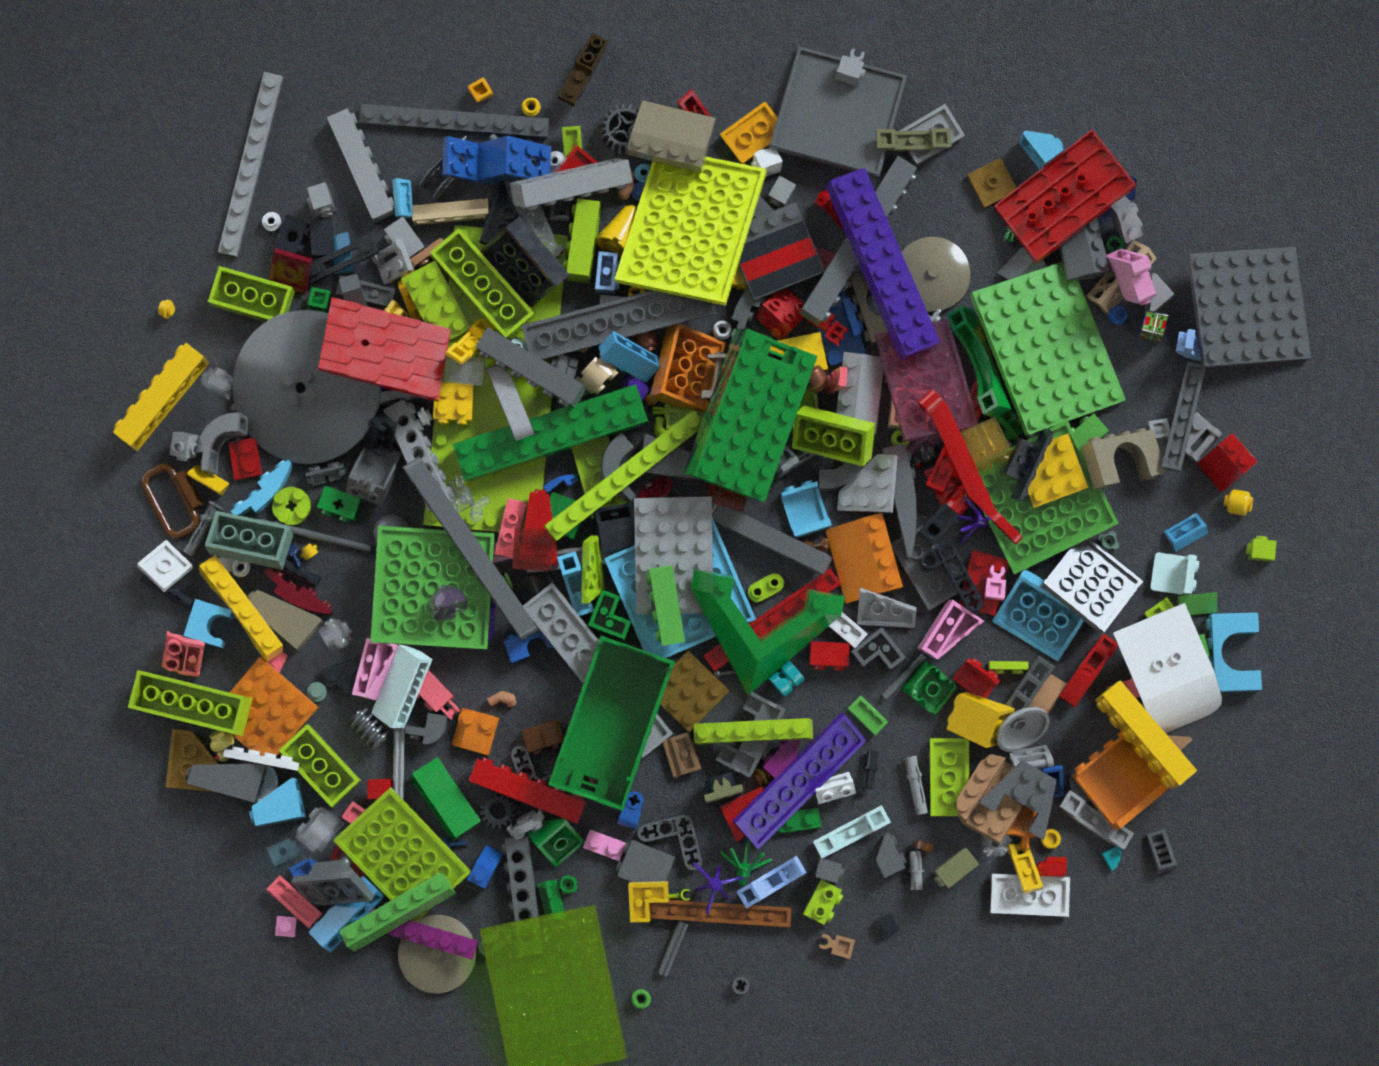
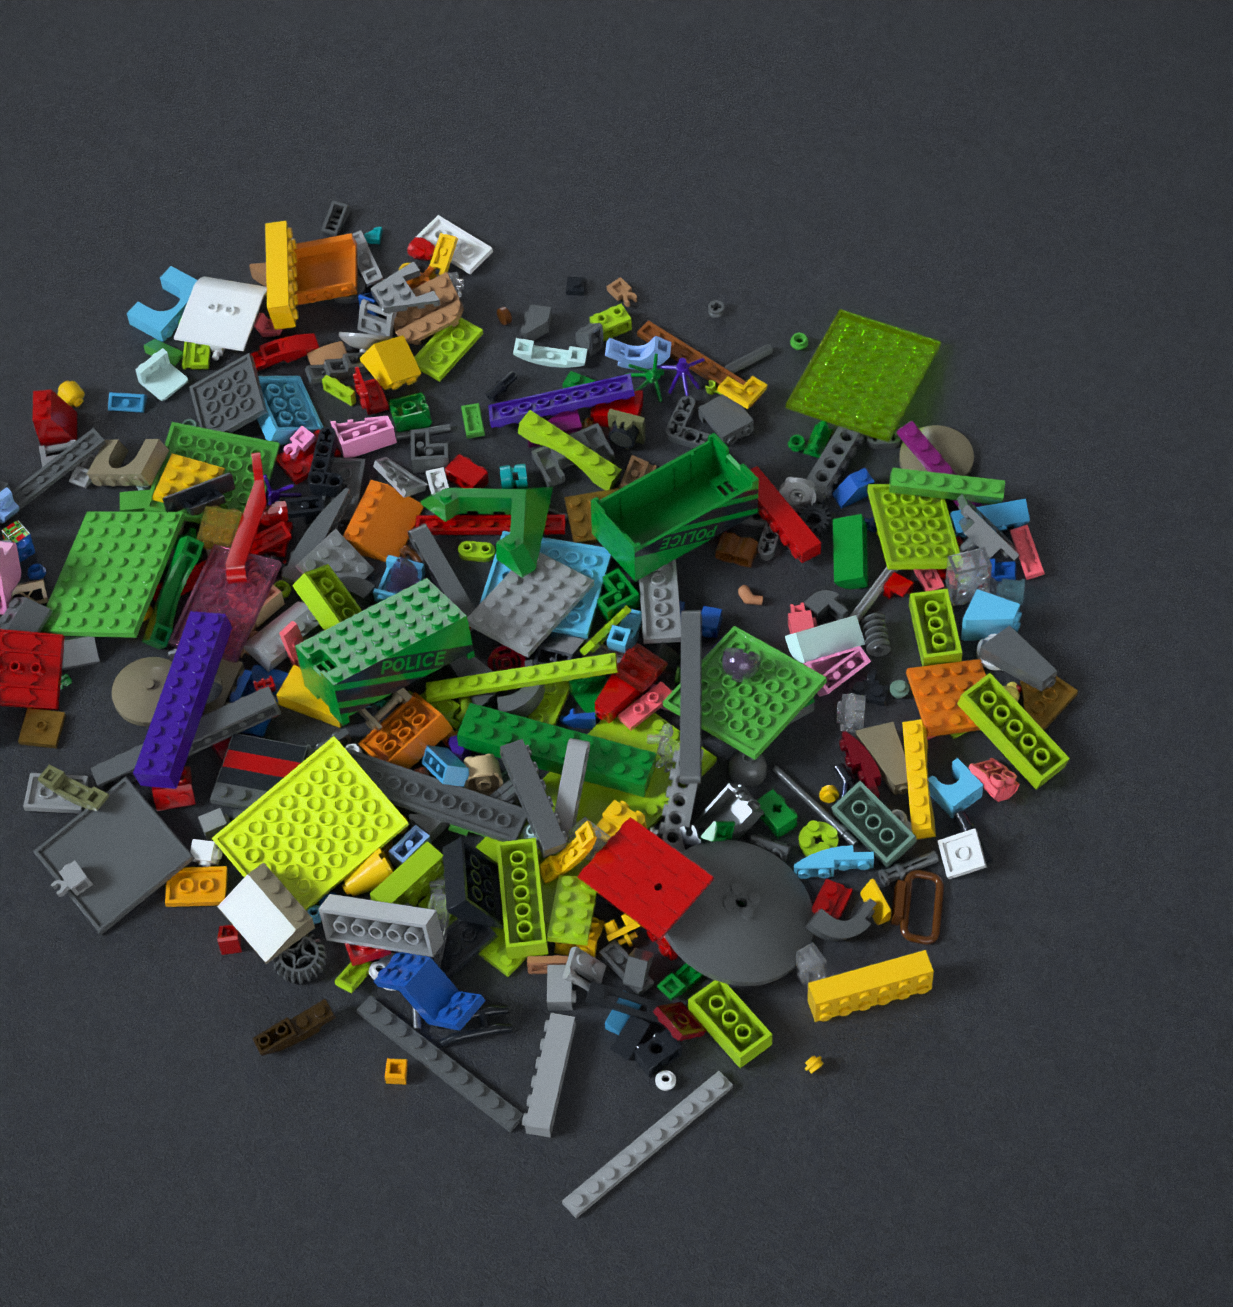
camera: 140 degrees left, 25 degrees down
(183, 445) = (877, 938): light grey brick -> none
(255, 757) = (980, 654): white plate -> none
(286, 926) = (1046, 542): bright pink plate -> none
(320, 200) = (608, 1060): light grey brick -> none
(364, 438) = (719, 831): none -> green slope
(402, 198) = (535, 1023): medium azure plate -> none
(450, 212) = (502, 986): tan fence -> none
(475, 731) = (789, 587): orange slope -> none
(531, 101) = (363, 1025): yellow plate -> none
(556, 840) = (779, 472): green slope -> none
(604, 845) = (747, 453): bright pink plate -> none
(666, 605) = (565, 564): bright green brick -> none
(781, 313) = (295, 729): red bracket -> none
(801, 509) = (402, 576): none -> clear purple cylinder
(835, 788) = (534, 384): white bracket -> none
(916, 785) = (473, 361): light grey pin -> none
(916, 870) = (523, 304): light grey axle -> none
(954, 868) = (494, 283): olive piece -> none
(1261, 549) = (84, 355): lime brick -> none

